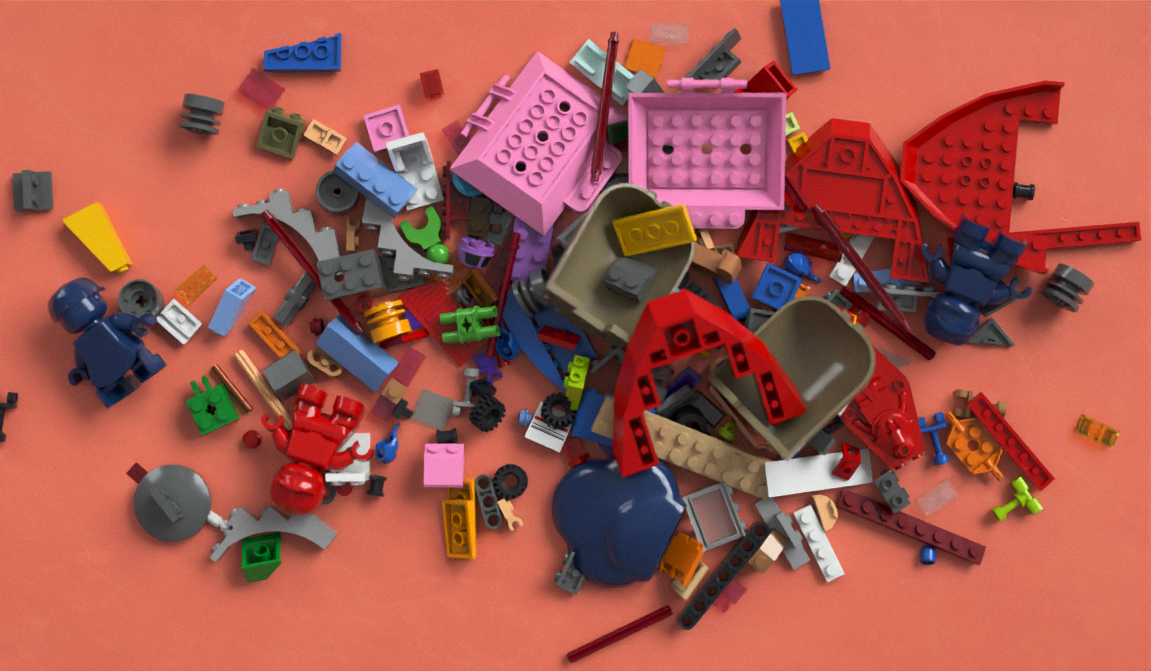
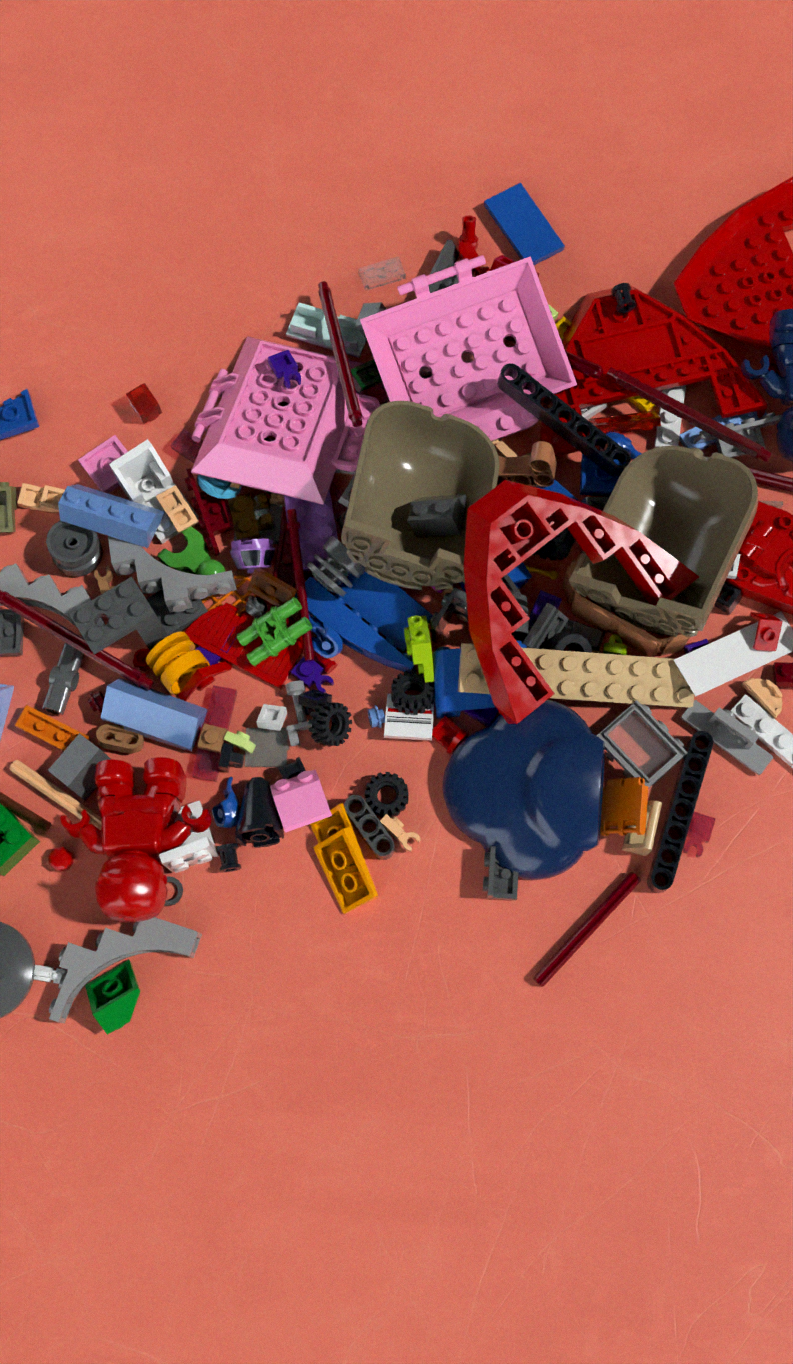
camera: 15 degrees left, 15 degrees down
(344, 489) = (191, 877): red sticker -> none
(409, 462) = (258, 816): none -> black cone
(414, 400) = (240, 741): none -> yellowish green plate
(428, 191) = (177, 509): none -> light nougat slope
(445, 389) = (271, 717): none -> white plate
(554, 105) = (285, 366): none -> dark purple plate
(559, 337) = (381, 607): red plate -> none
(645, 57) = (357, 297): orange piece -> none
(654, 230) = (444, 450): yellow tile -> none
(748, 40) = (468, 243): none -> red arm
(767, 242) = (557, 409): none -> black beam
(768, 551) = (721, 761): medium nougat slope -> none
(821, 442) = (724, 617): dark grey slope -> none
(856, 140) = (628, 301): none -> black bush

